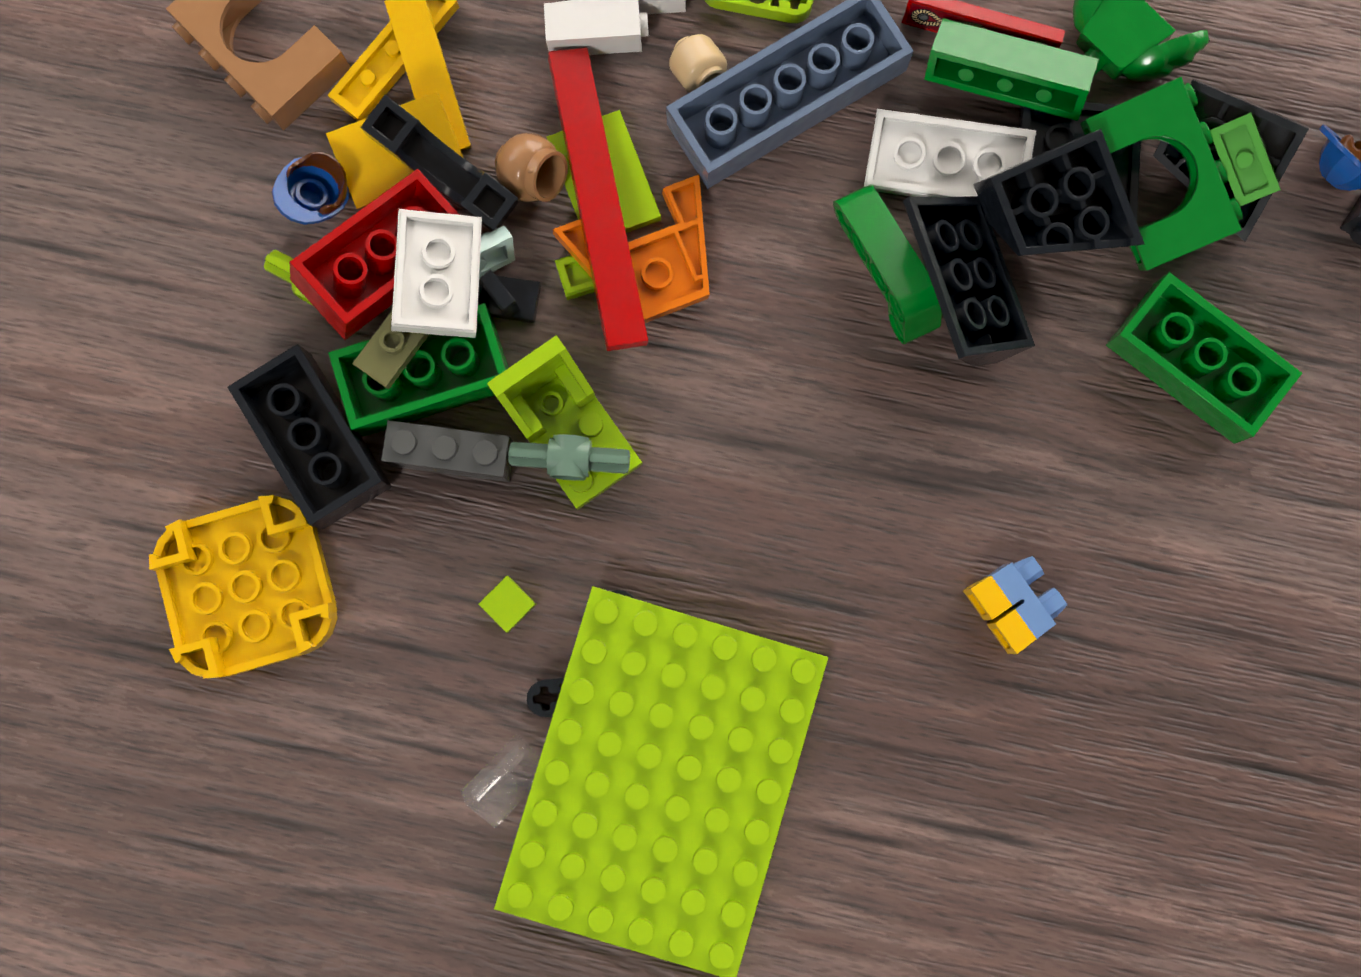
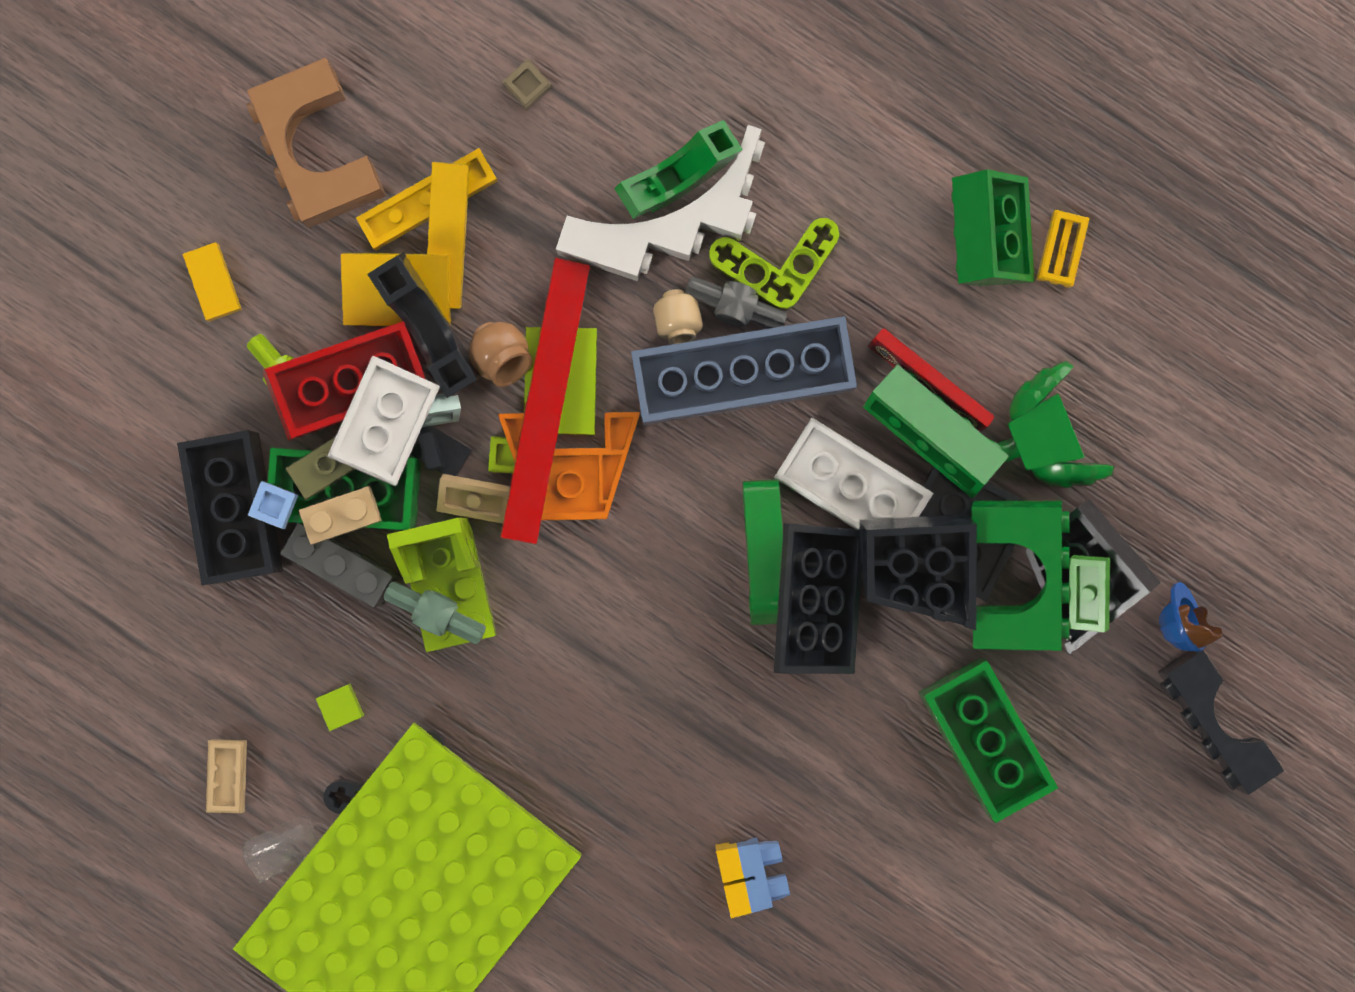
camera: 20 degrees right, 5 degrees up
(204, 220) = (212, 282): none -> yellow tile
(244, 587) = (130, 607): yellow tile -> none
(311, 189) = (309, 298): blue piece -> none
(353, 406) = (273, 505): none -> light blue plate
(414, 725) = (226, 776): none -> tan plate
(429, 391) = (340, 515): none -> tan plate
(574, 325) = (472, 498): none -> tan plate
(748, 28) = (735, 303): none -> dark grey axle

